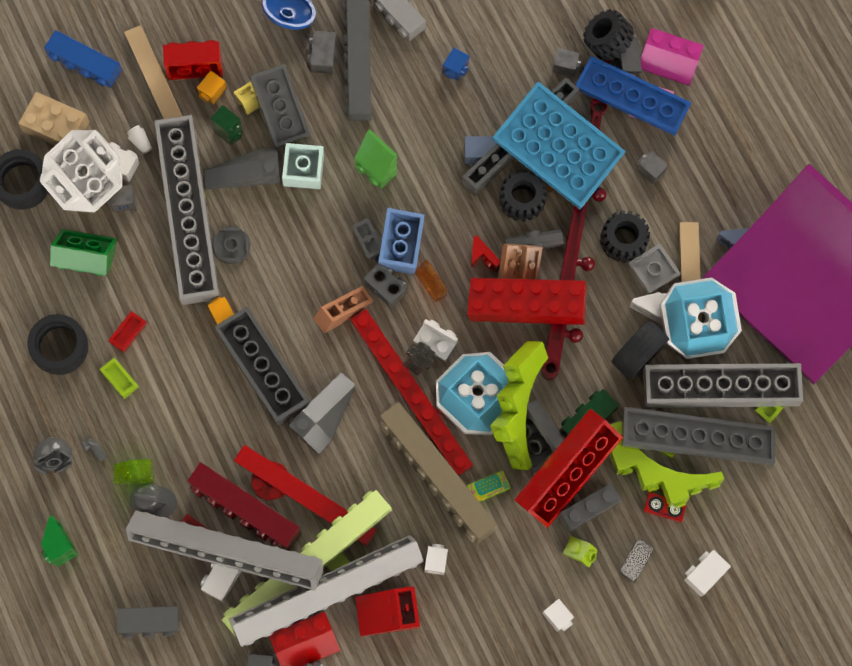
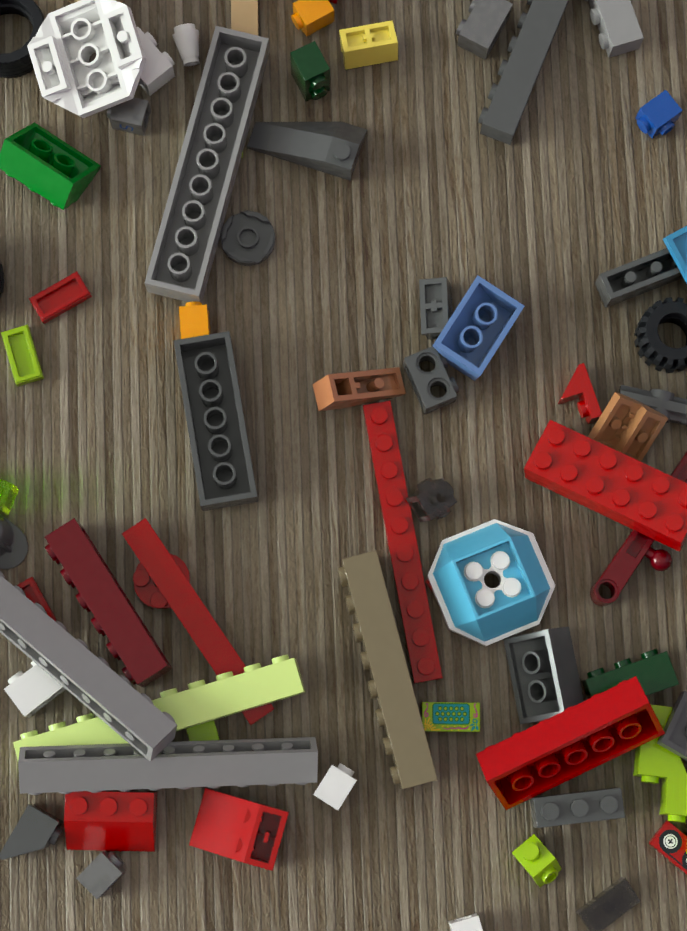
camera: 25 degrees right, 5 degrees up
(279, 105) = (393, 73): dark grey plate -> none
(303, 166) = (389, 170): light aqua brick -> none
(321, 417) = (266, 523): wedge -> none
(376, 160) = (490, 203): bright green slope -> none
(431, 281) = (495, 400): clear orange slope -> none
(439, 340) = (469, 485): white bracket -> none
(476, 147) = (636, 243): sand blue slope -> none
(513, 400) = (536, 614): lime arch -> none

